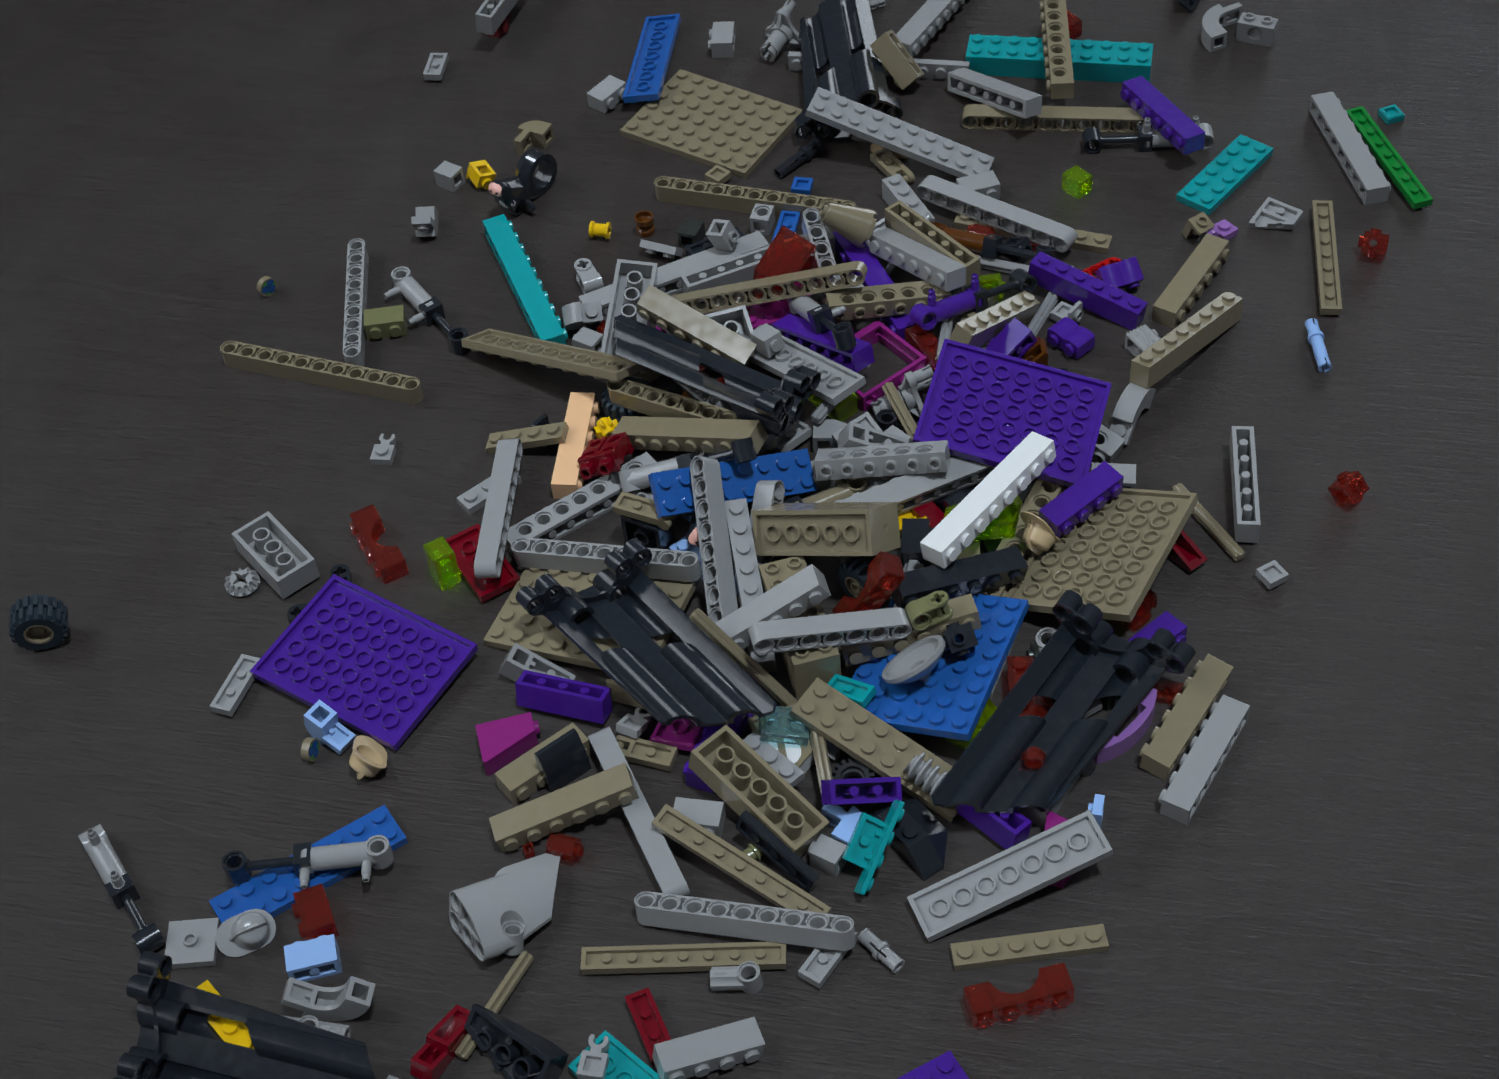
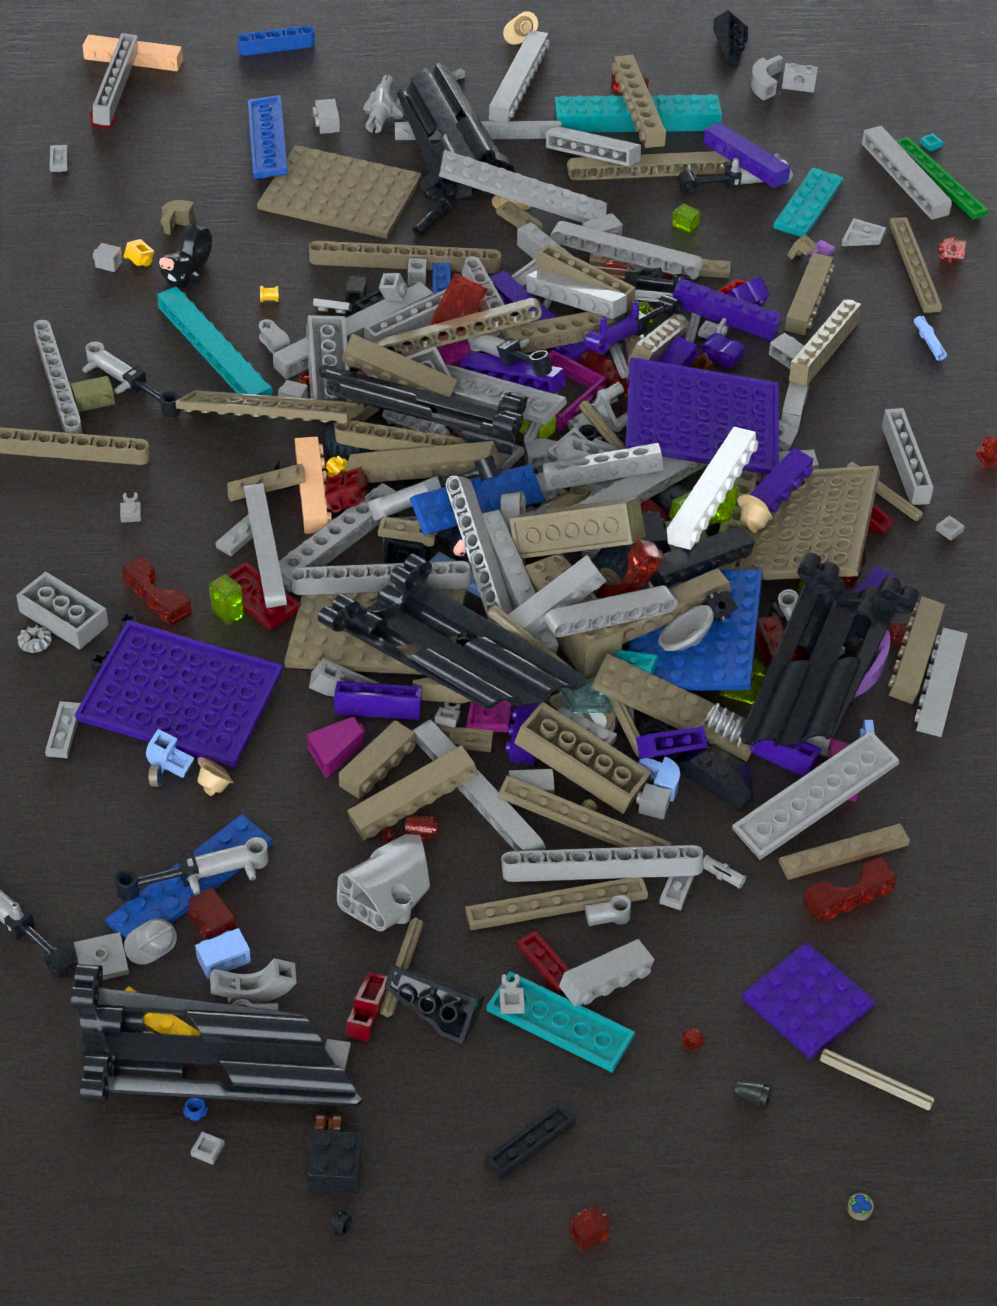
camera: 20 degrees left, 0 degrees up
(425, 221) = (101, 299): light grey brick -> none
(562, 760) = (397, 753): black slope -> none
(579, 314) = (278, 369): light grey brick -> none
(606, 94) = (235, 172): light grey brick -> none
(644, 223) = (309, 285): reddish brown wheel -> none
(718, 175) = (362, 236): dark tan plate -> none
(768, 340) = (465, 374): light grey brick -> none
(777, 851) = (612, 802): black tile -> none
(802, 185) = (443, 239): blue plate -> none
(849, 221) = (508, 266): dark tan cone -> none
(869, 842) = (692, 783): teal bracket -> none
(896, 60) = (497, 123): dark tan brick -> none
(927, 612) = (688, 586): olive piece -> none
(1033, 758) = (812, 695): clear red plate -> none

